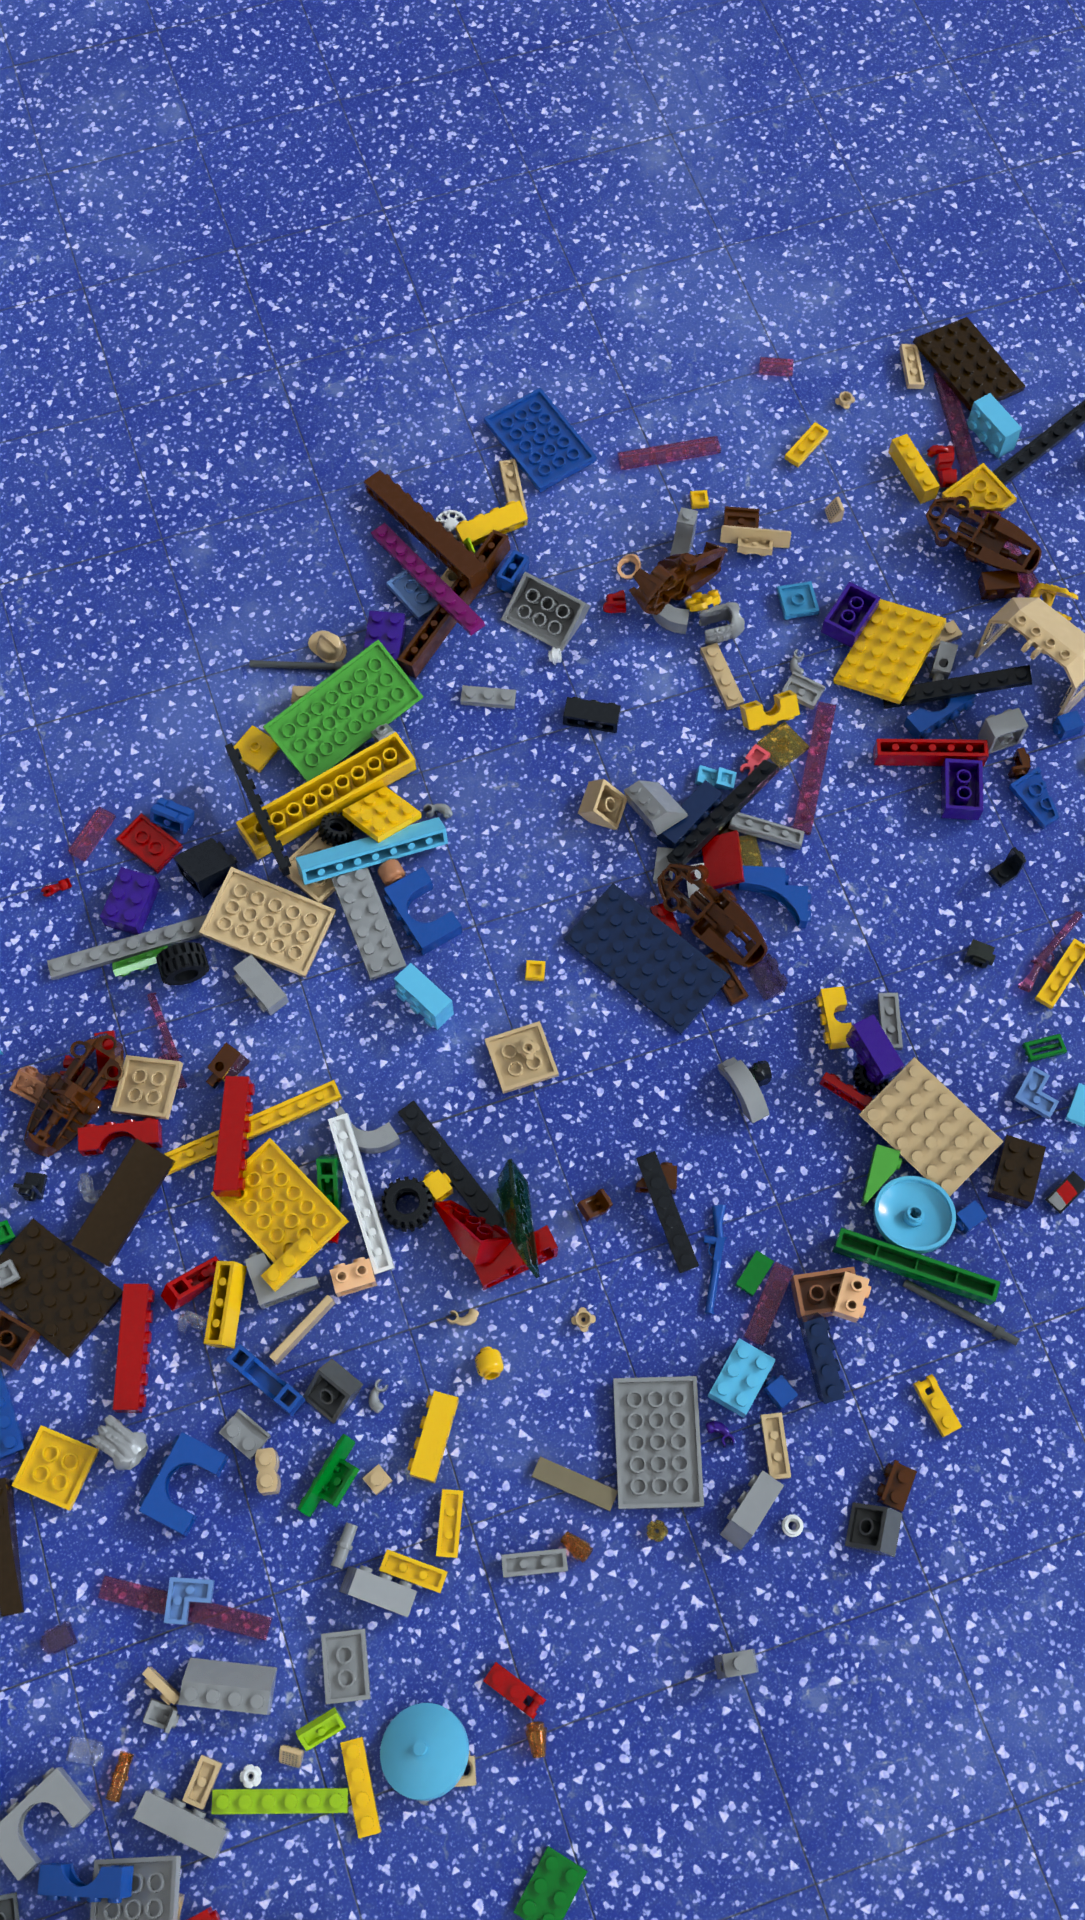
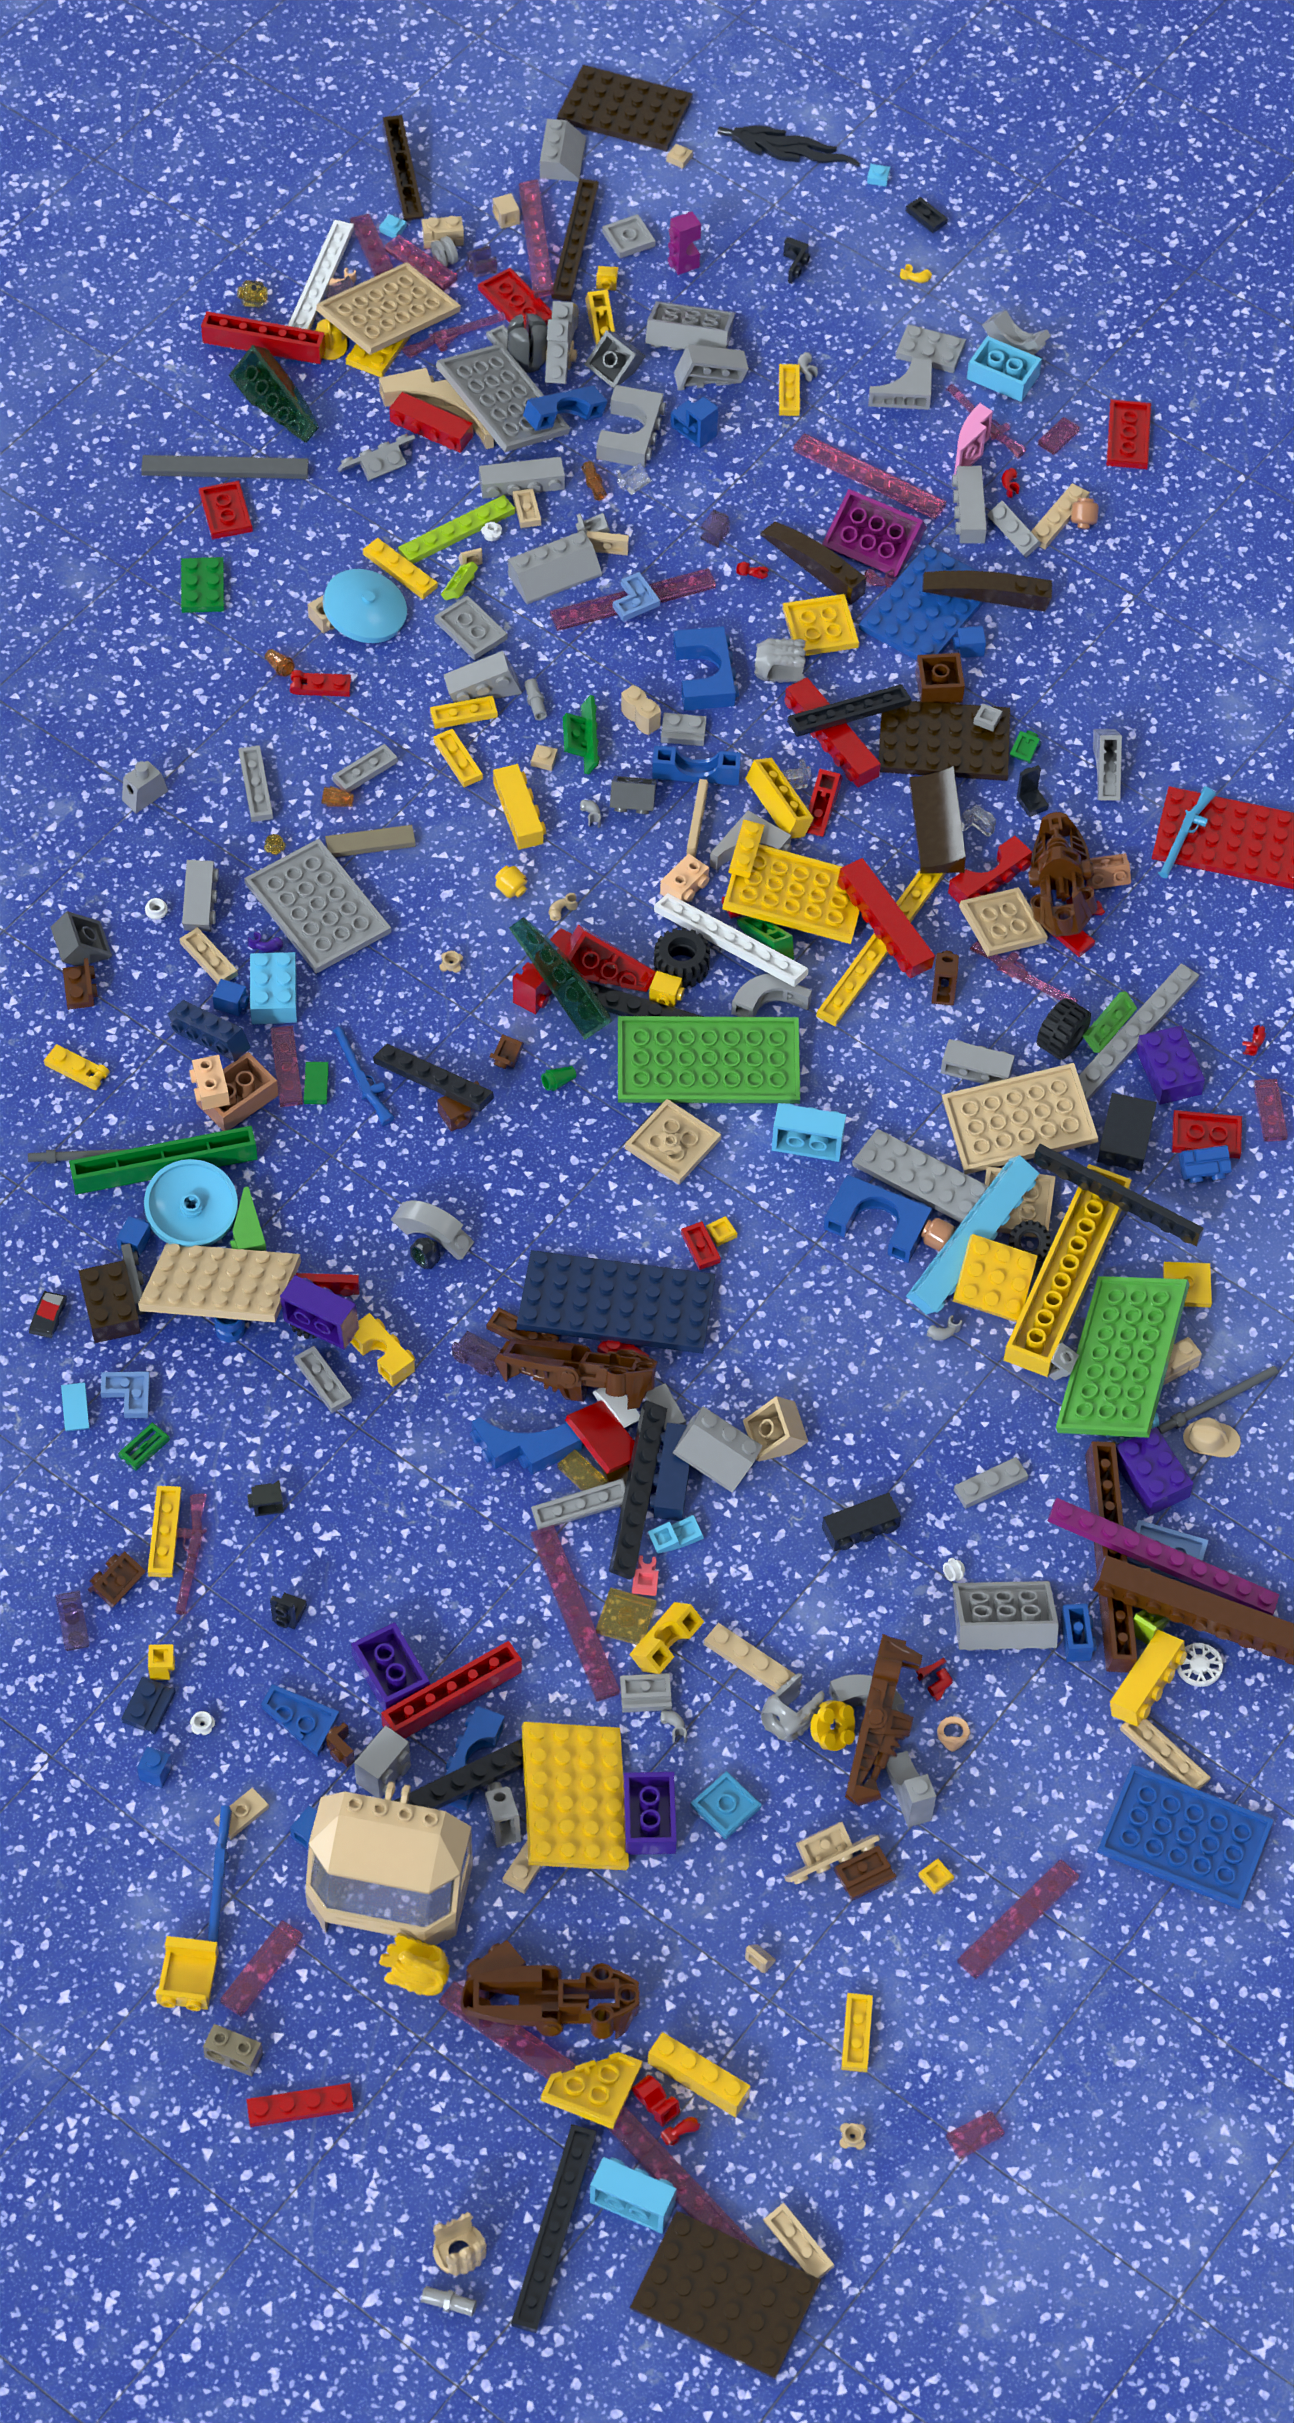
camera: 145 degrees right, 10 degrees down
(60, 1565) = (758, 572): none -> red arm
(108, 1346) = (849, 710): none -> black plate
(450, 1104) = (708, 1059): none -> bright green plate
(558, 965) = (700, 1245): none -> red plate
(569, 1161) = (557, 1077): none -> green cone
(636, 1608) = (255, 783): none -> light grey plate
(987, 1180) = (135, 1276): none -> dark grey plate

